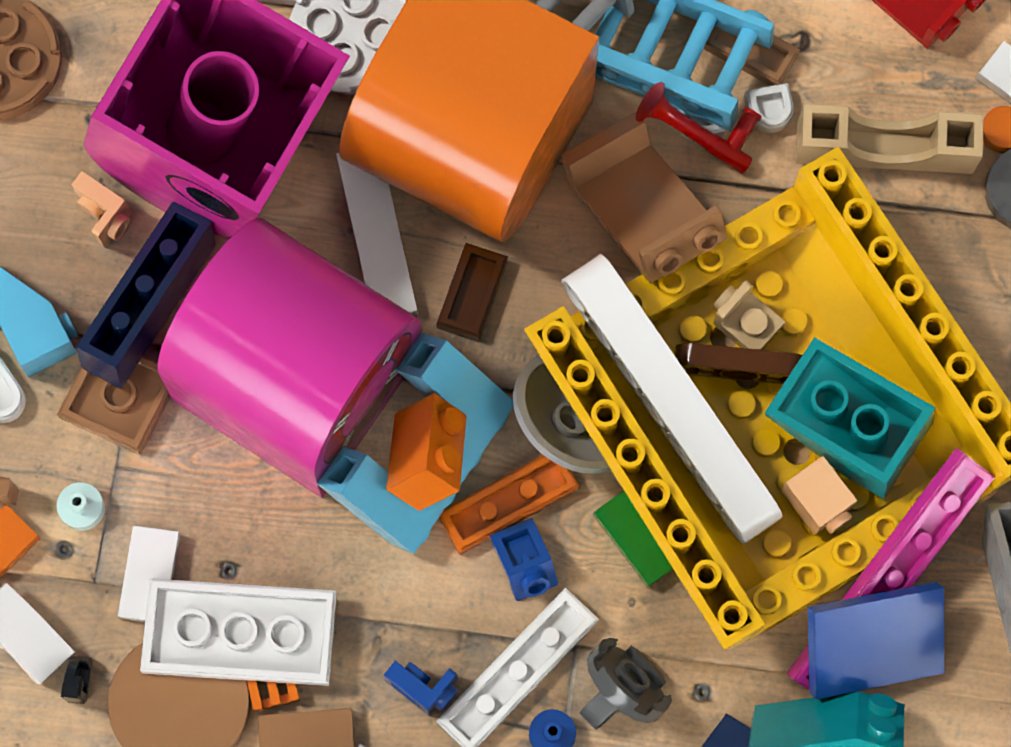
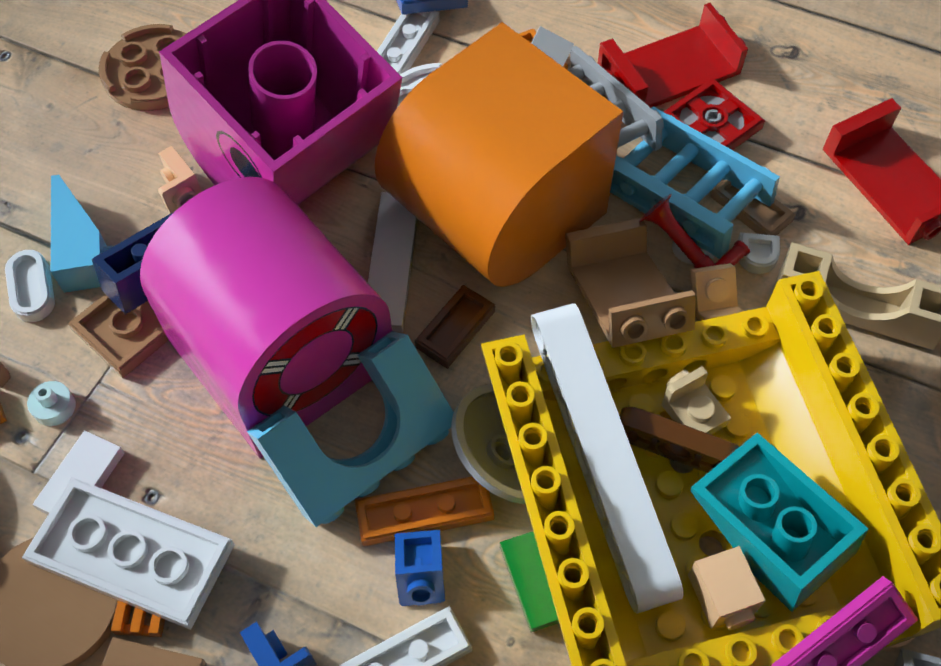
camera: 20 degrees right, 15 degrees down
(426, 452) = (355, 431): orange brick -> none
(737, 180) = (715, 291): none -> light nougat bracket

